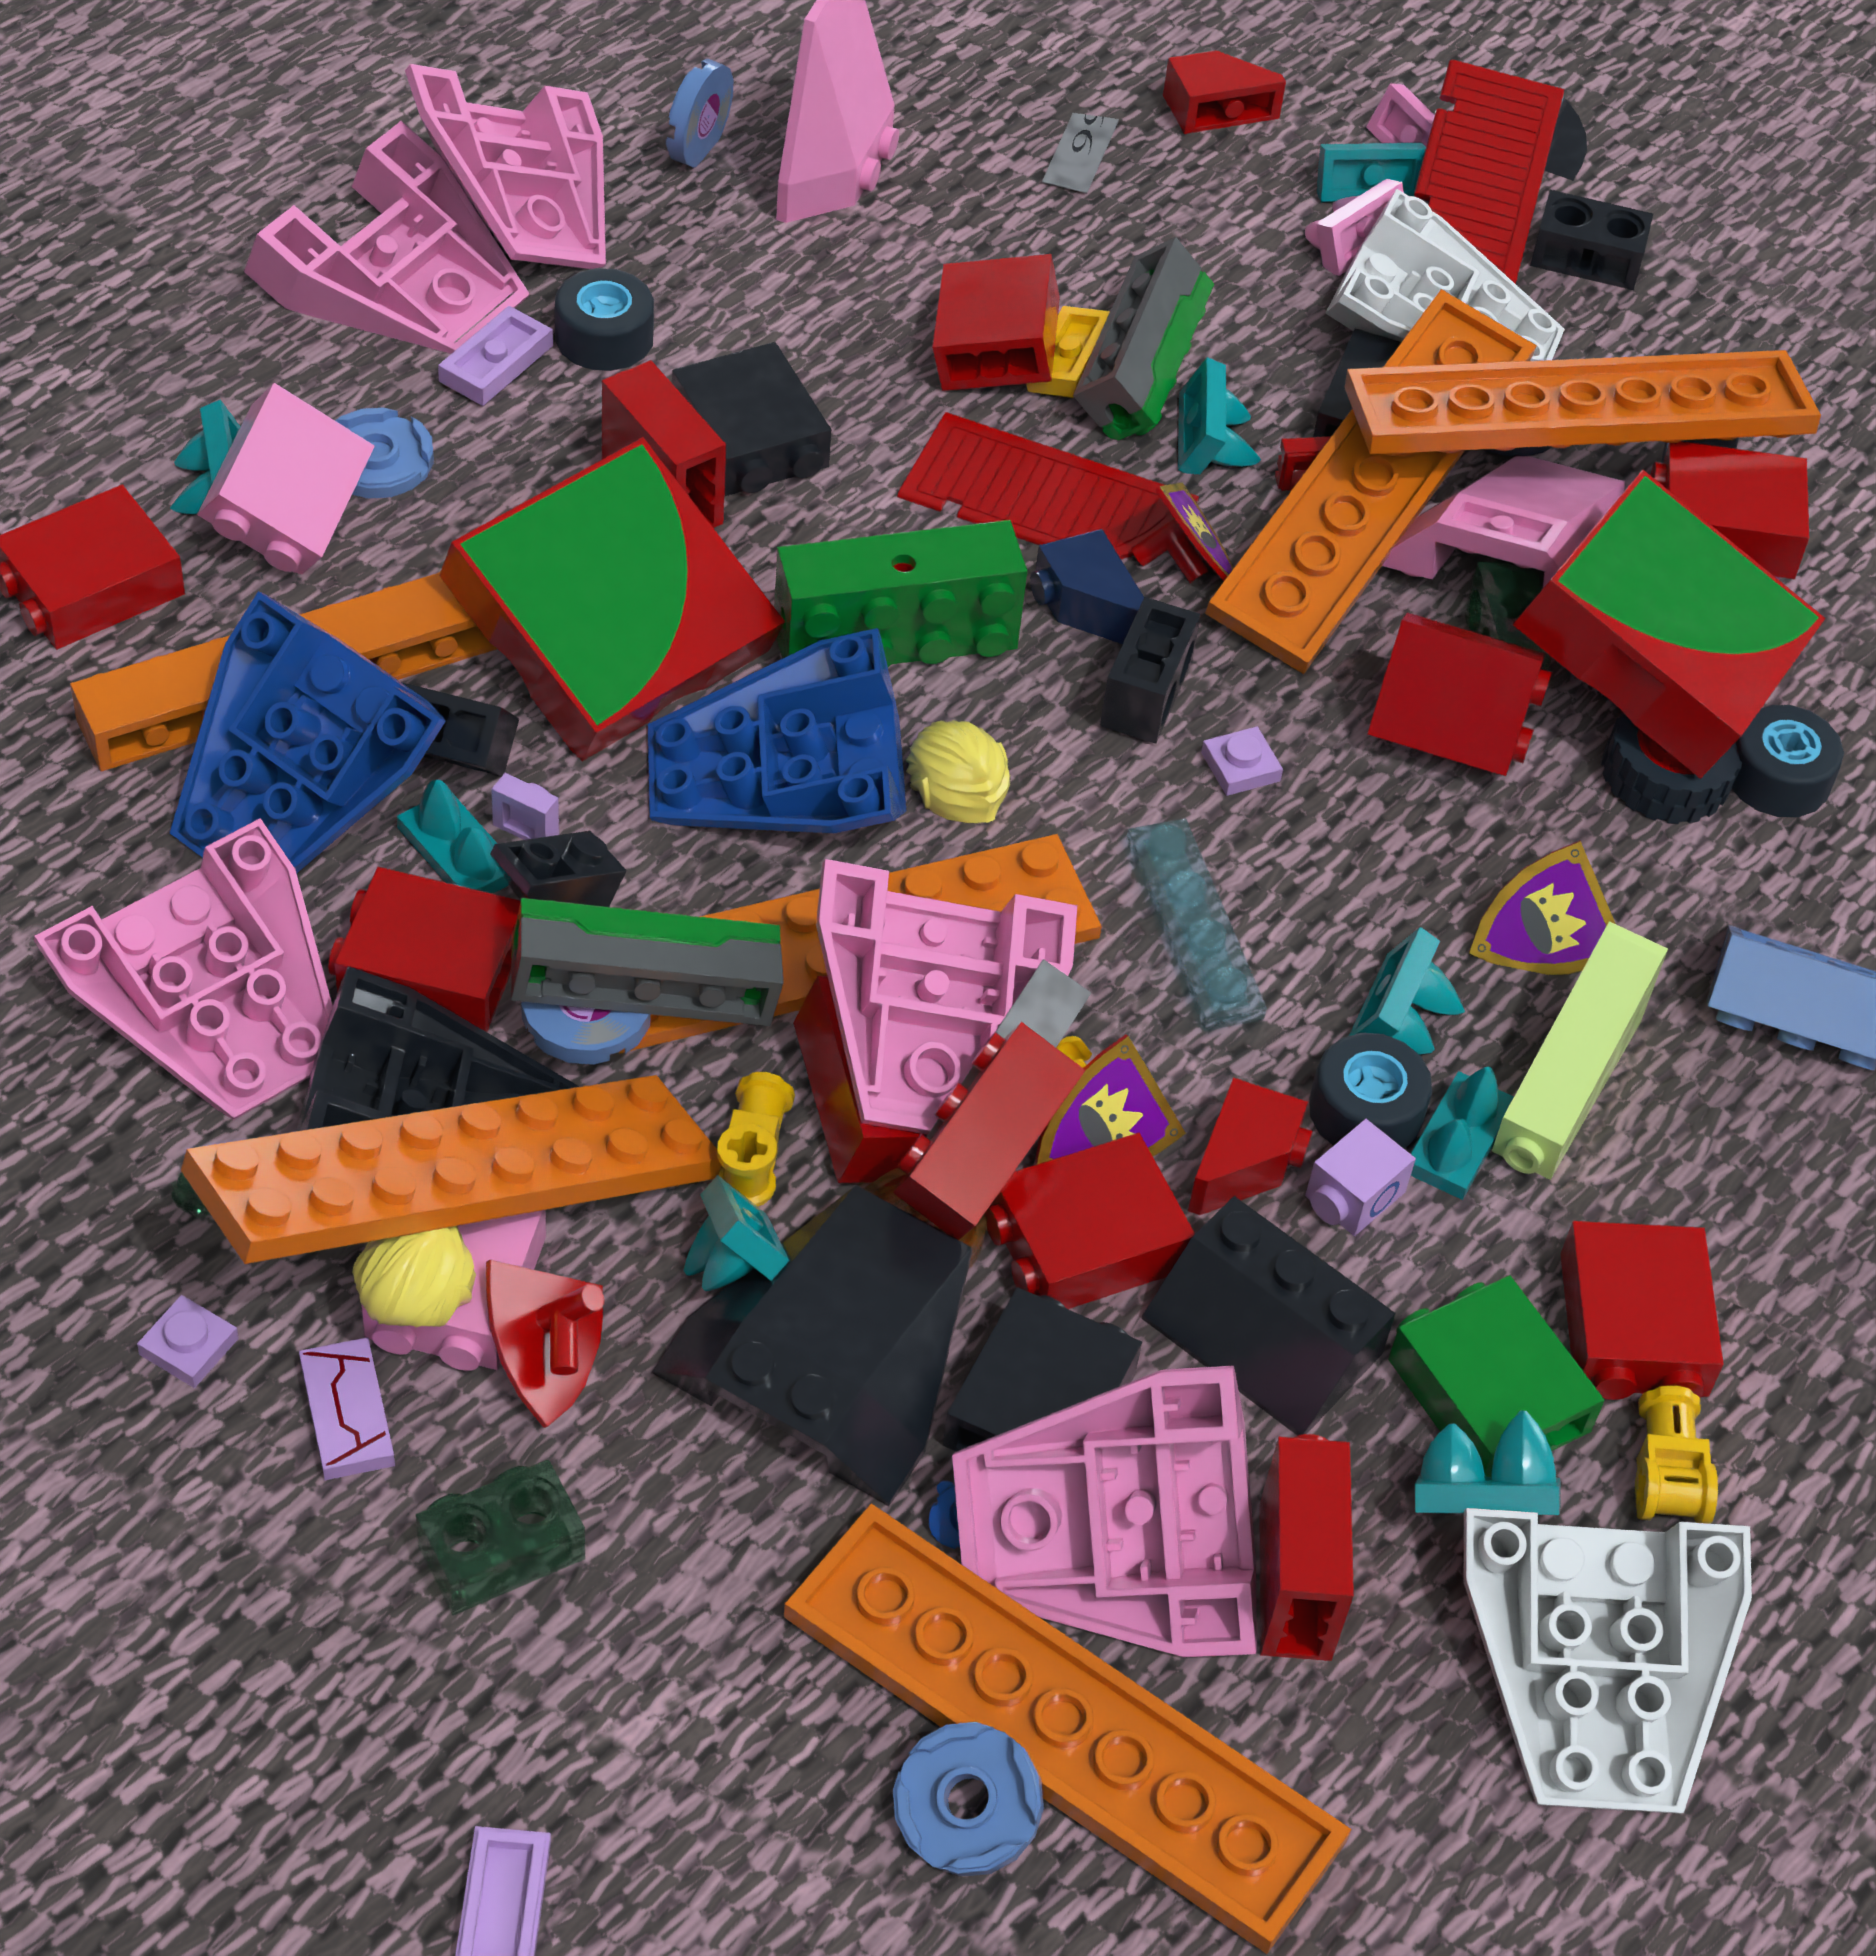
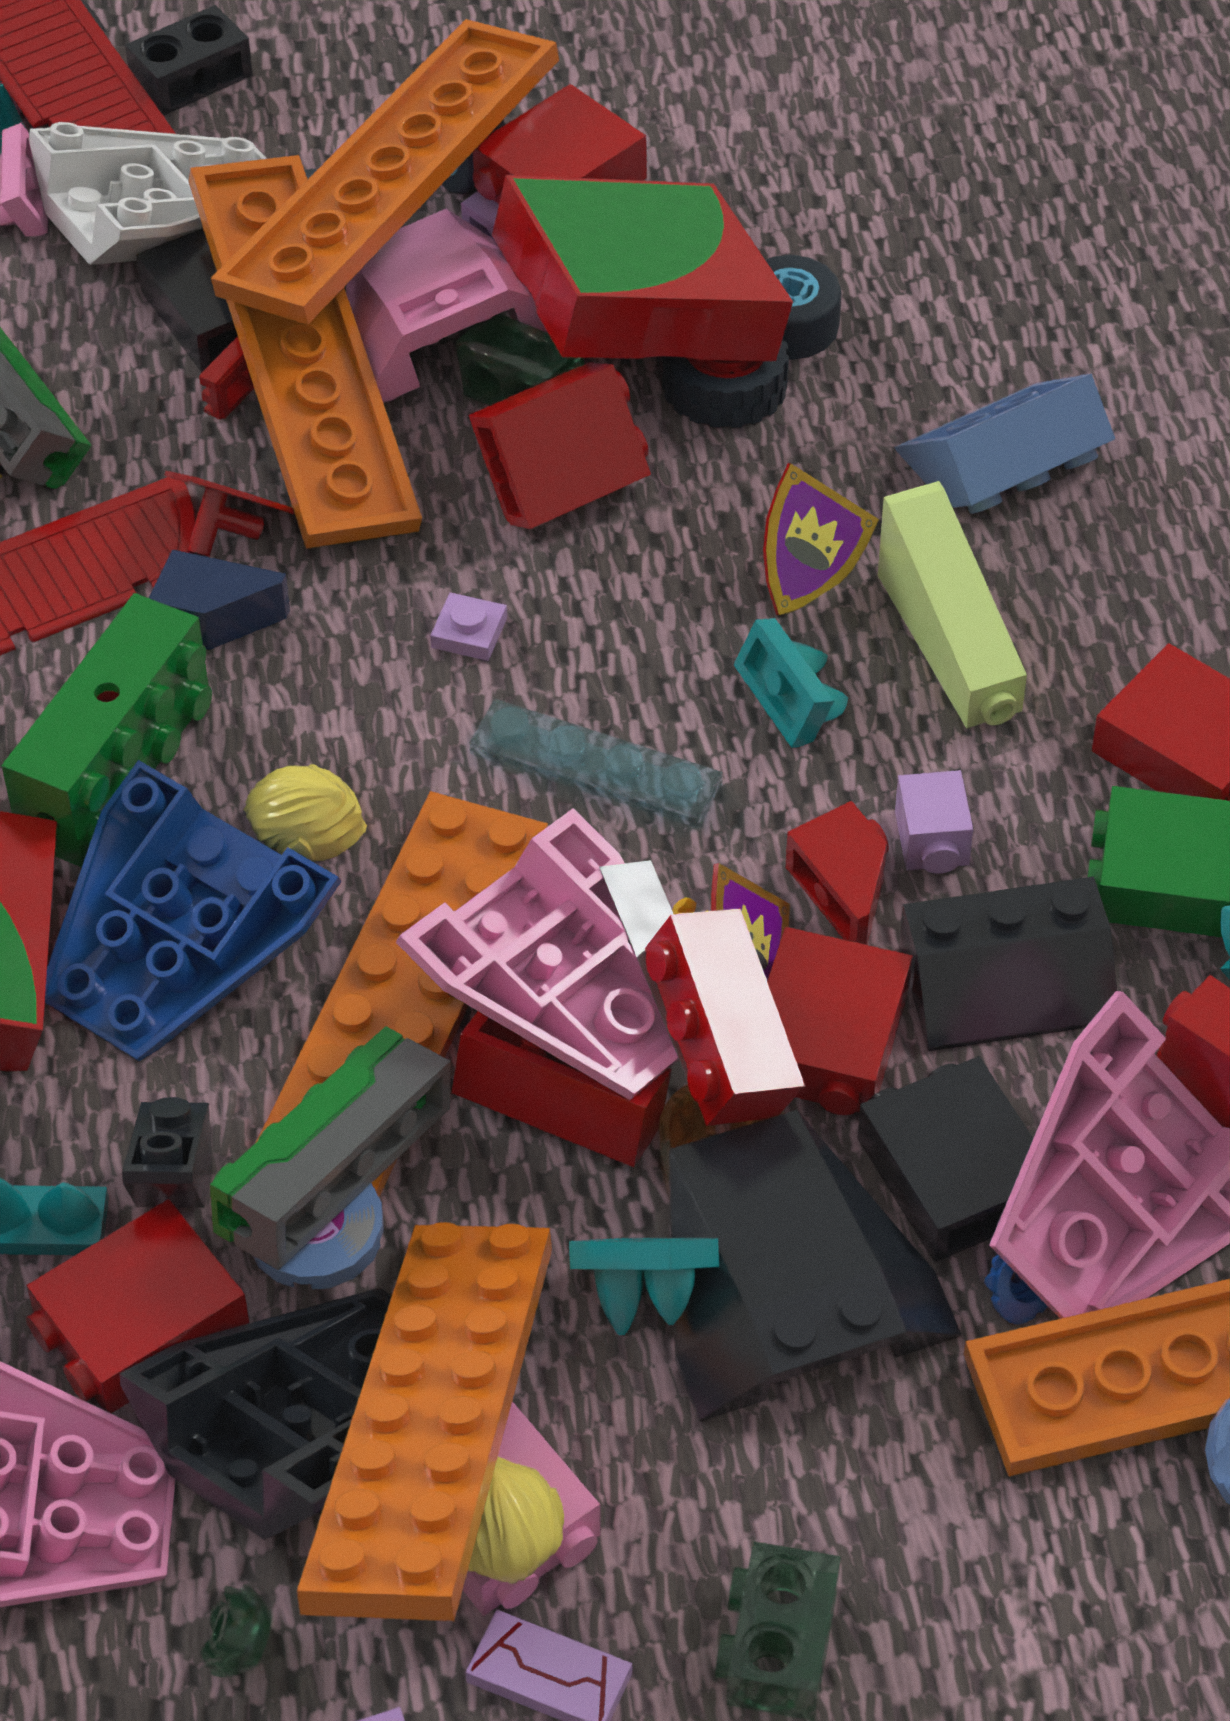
camera: 45 degrees left, 0 degrees up
(524, 808) = (56, 1141): lavender plate -> none
(544, 1334) = (616, 1466): red shield -> none
(751, 1141) = (544, 1191): yellow connector -> none
(1150, 670) = (340, 617): black brick -> none
(1202, 421) = (115, 414): teal tile -> none
(1374, 1081) = (858, 758): black wheel -> none
(1461, 1132) = (939, 728): teal tile -> none

